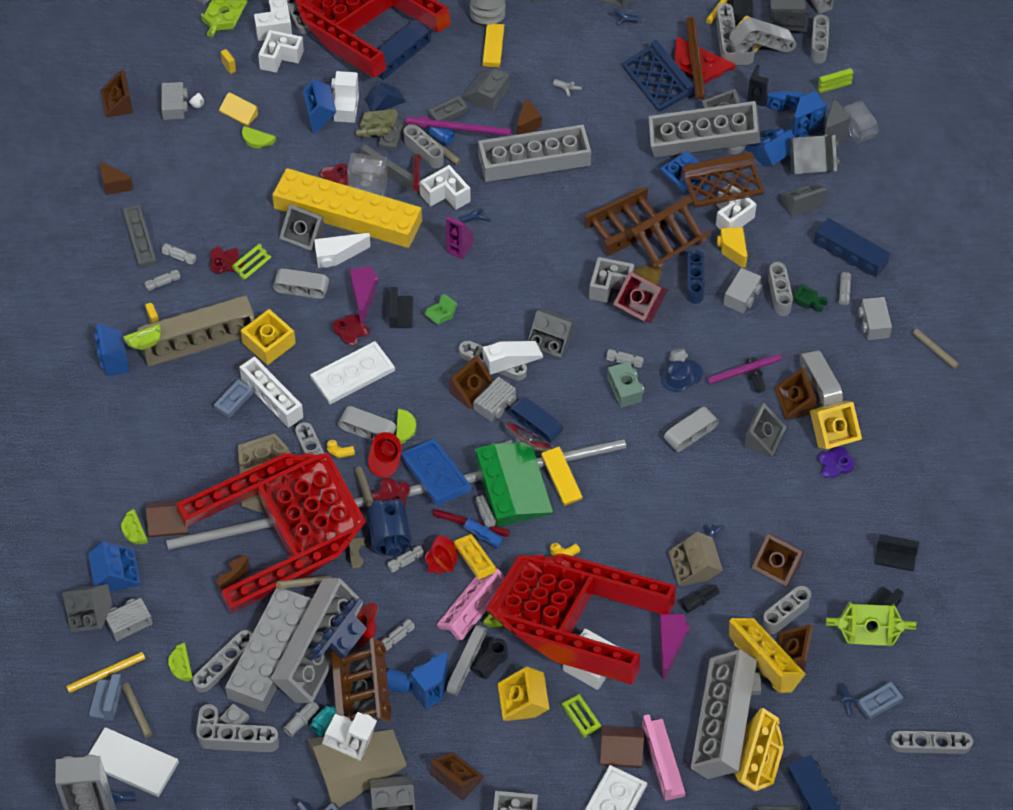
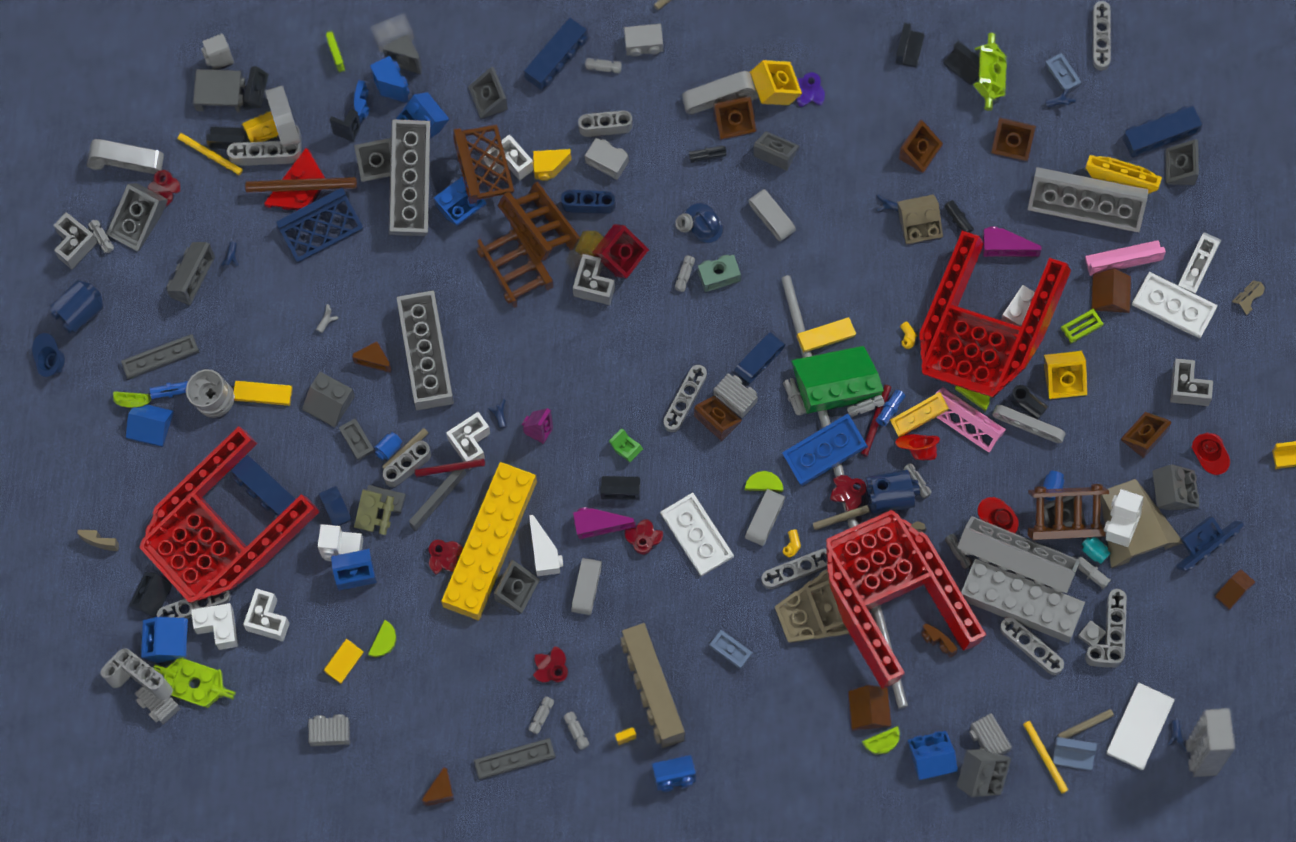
camera: 85 degrees left, 15 degrees up
(116, 96) = (319, 794): reddish brown slope -> none
(144, 338) = (678, 730): lime tile -> none
(179, 663) = (1033, 688): lime tile -> none
(197, 101) = (328, 707): white hinge -> none
(228, 61) = (274, 674): yellow tile -> none
(262, 253) = (559, 638): lime tile -> none
(268, 337) = (660, 614): yellow brick -> none
(271, 392) = (728, 609): white brick -> none
(301, 582) = (953, 572): dark tan bar -> none
(342, 634) = (1018, 528): dark blue bracket -> none
(368, 173) = (450, 517): clear brick -> none
(384, 454) = (803, 497): red piece -> none
(398, 633) = (1001, 487): light grey axle -> none
(425, 122) = (382, 459): magenta bar -> none
(430, 680) = (1058, 451): blue slope -> none
(509, 355) = (687, 377): white slope -> none
(525, 436) = (785, 363): shield -> none
(552, 331) = (654, 339): dark grey slope -> none
(745, 368) = (704, 161): magenta bar -> none
(770, 657) = (1025, 159): yellow slope -> none
(788, 602) = (969, 135): light grey beam -> none
(808, 297) = (615, 99): dark green plate -> none
(814, 154) = (438, 77): panel -> none
(819, 39) = (284, 67): light grey beam -> none

